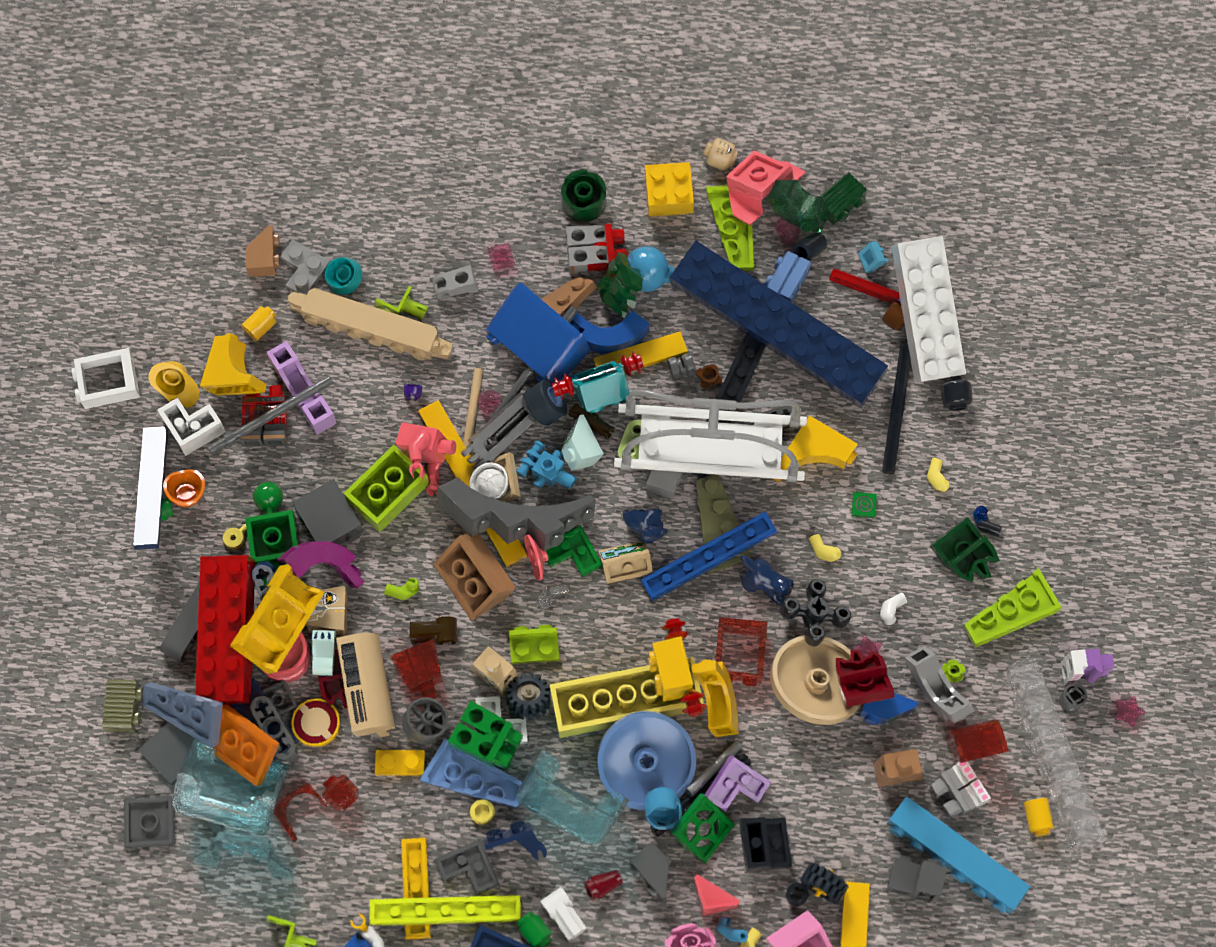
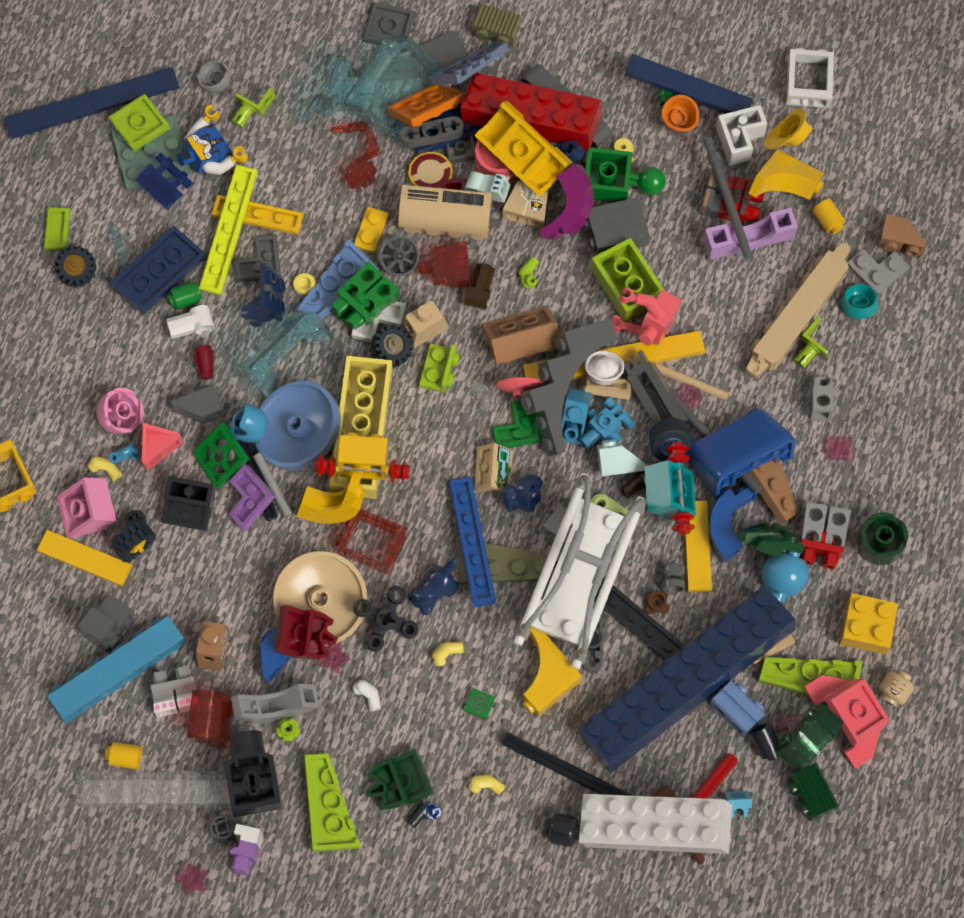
camera: 105 degrees right, 0 degrees up
(412, 390) = (721, 328): dark purple hinge -> none
(544, 494) = (575, 415): none -> dark azure slope
(1023, 676) = (251, 775): none -> black brick

